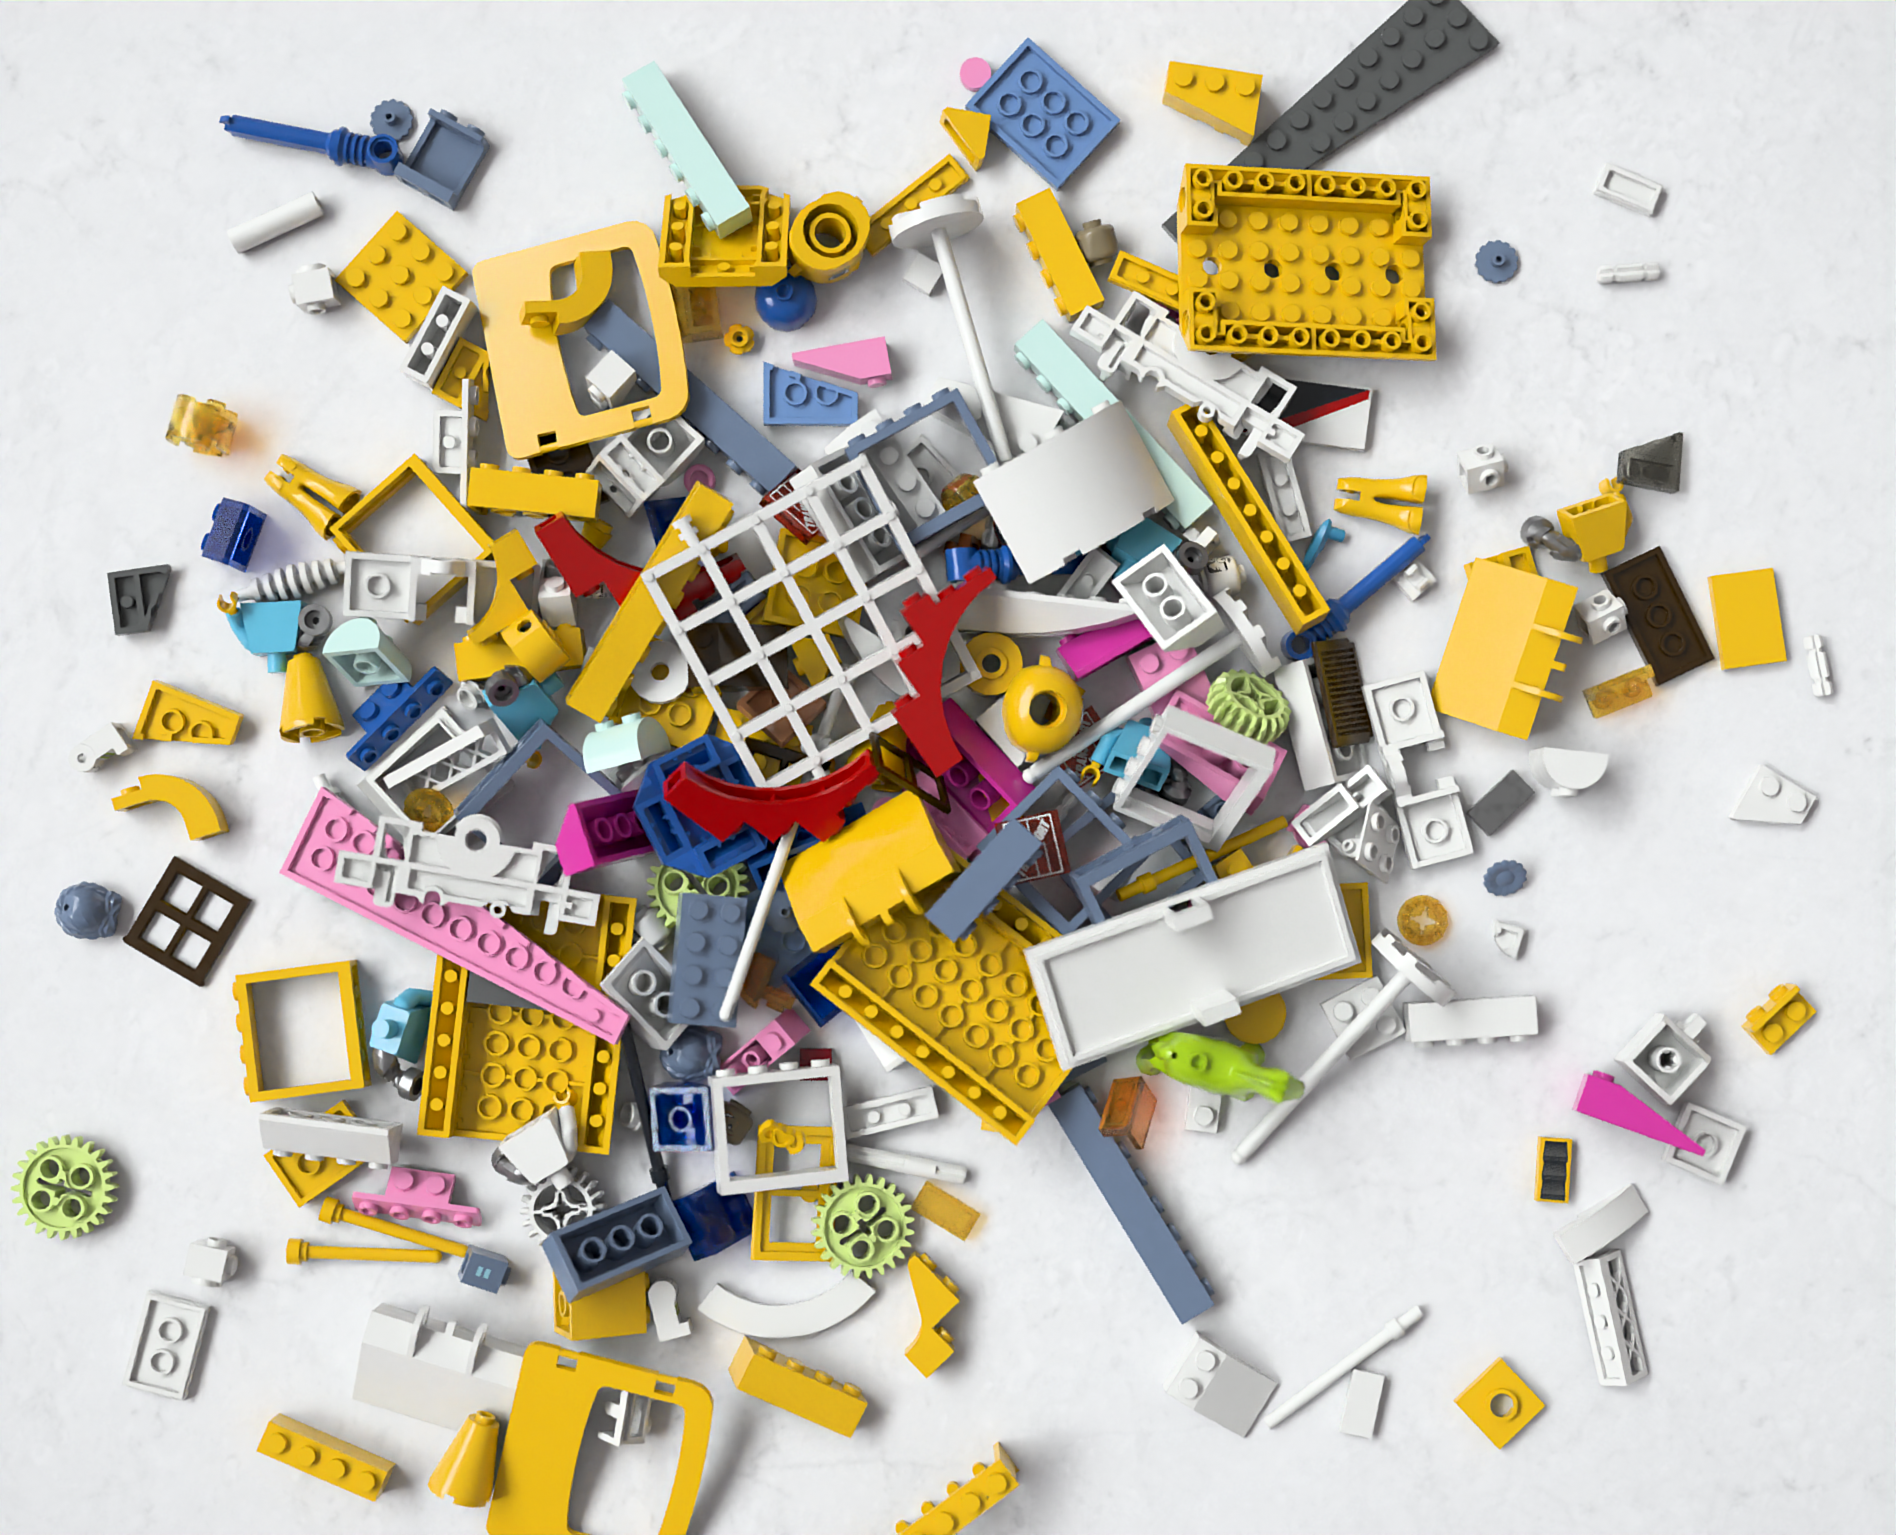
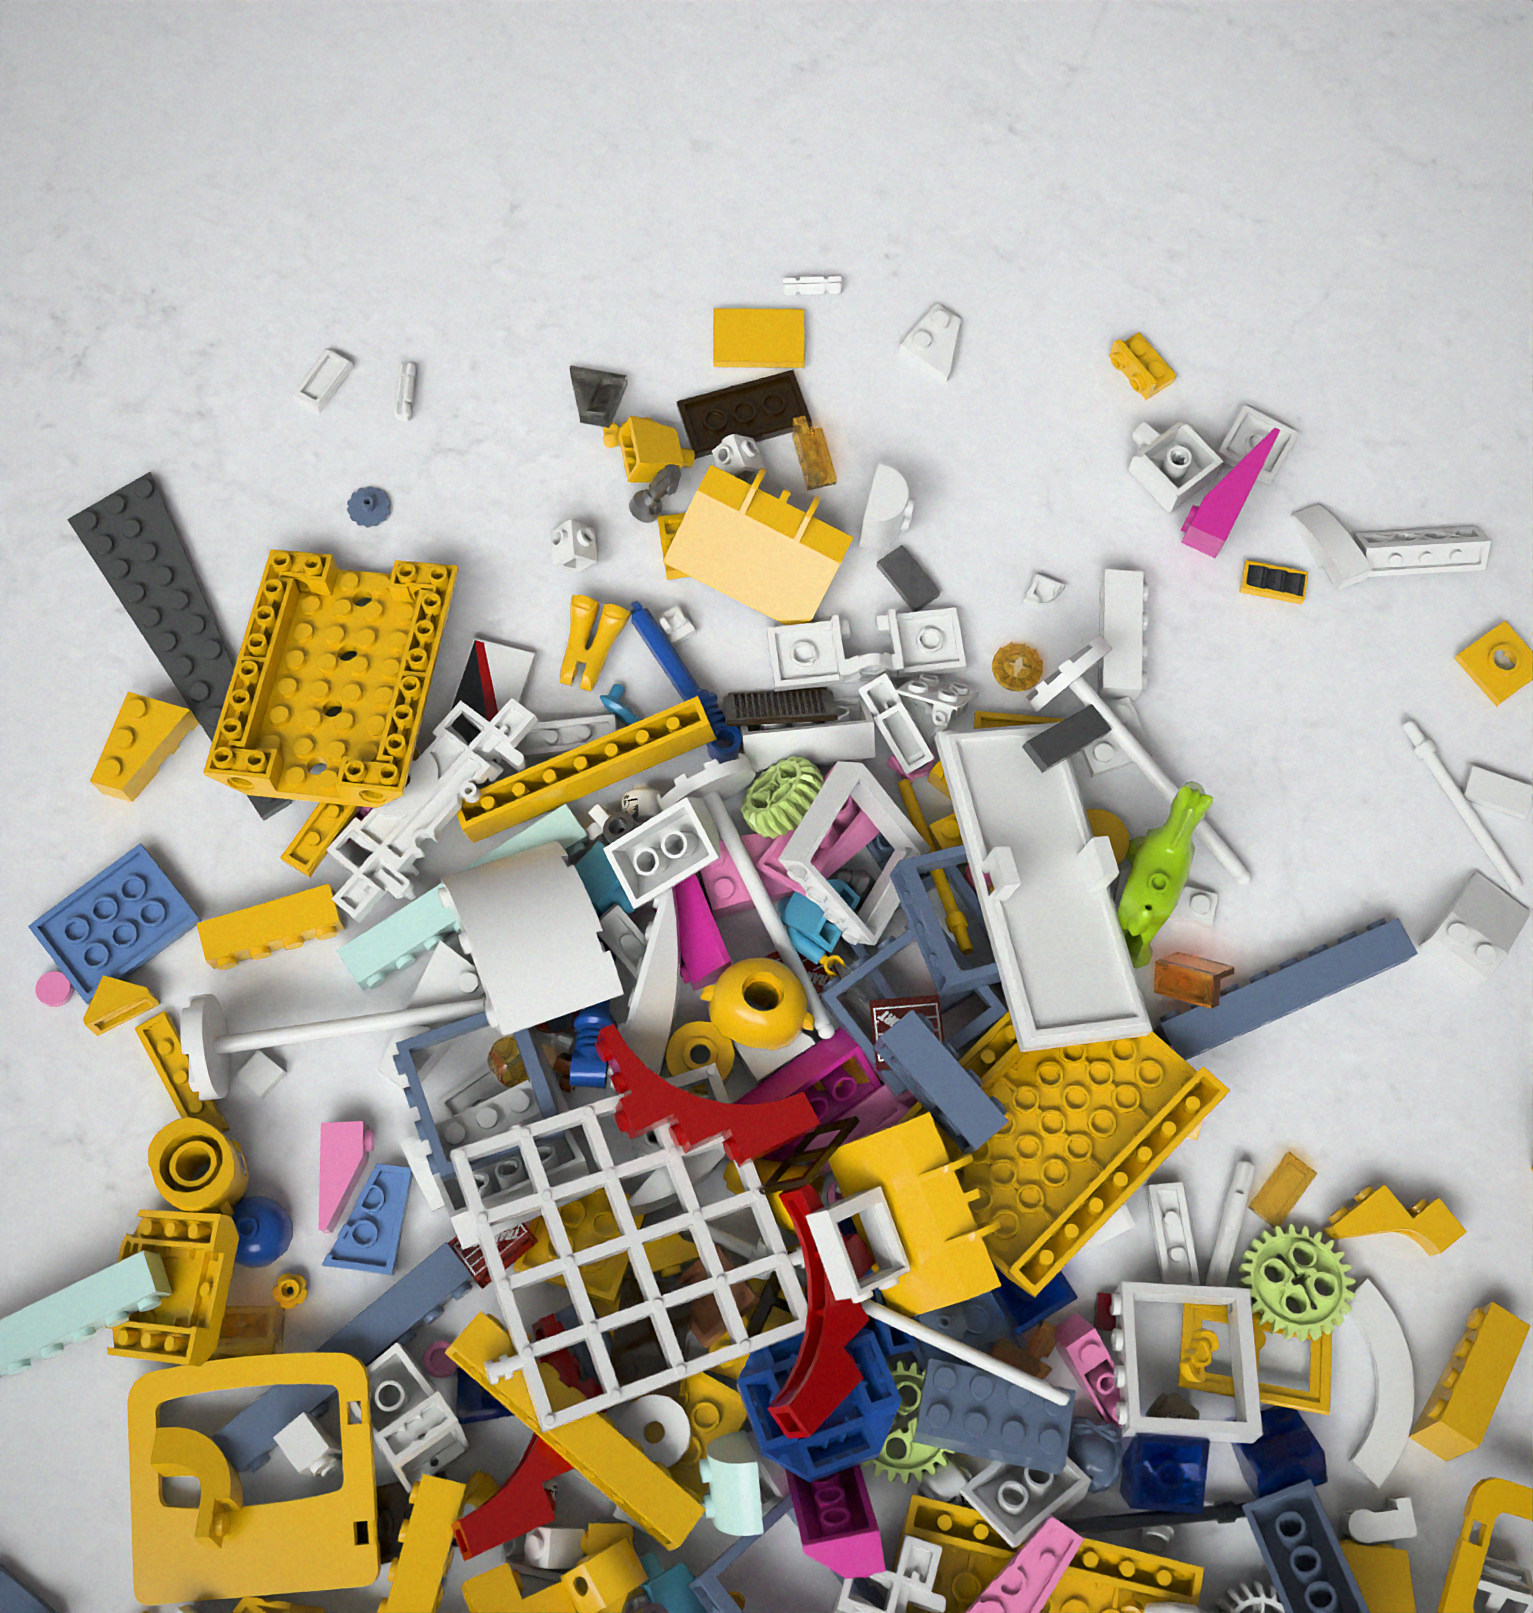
camera: 85 degrees left, 15 degrees down
(855, 839) = (881, 1236): none -> white window
(1097, 242) = (266, 883): dark tan head -> none
(1342, 969) = (1066, 738): none -> dark grey tile
(1505, 877) = (983, 583): sand blue piece -> none

